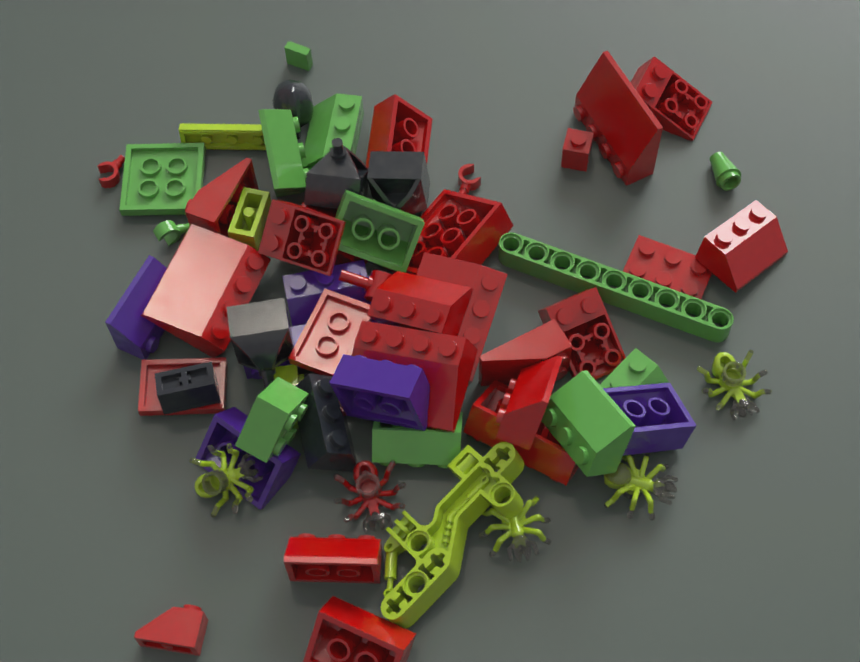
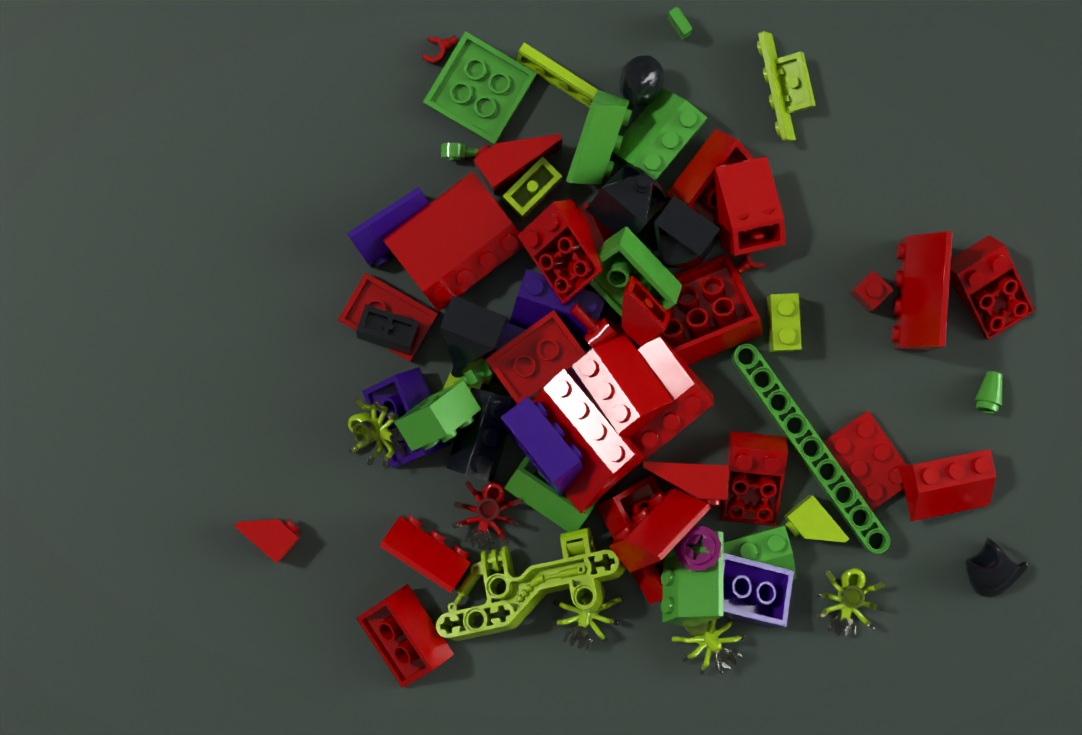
camera: 30 degrees right, 25 degrees up
(293, 373) = (476, 375): none -> bright green piece
(401, 246) = (641, 313): none -> red slope
(413, 49) = (788, 84): none -> lime bracket
(440, 135) = (748, 207): none -> red slope
(525, 207) = (784, 322): none -> lime brick
(564, 387) = (694, 537): none -> magenta gear
(661, 338) = (813, 522): none -> lime slope
(832, 296) = (992, 570): none -> black piece

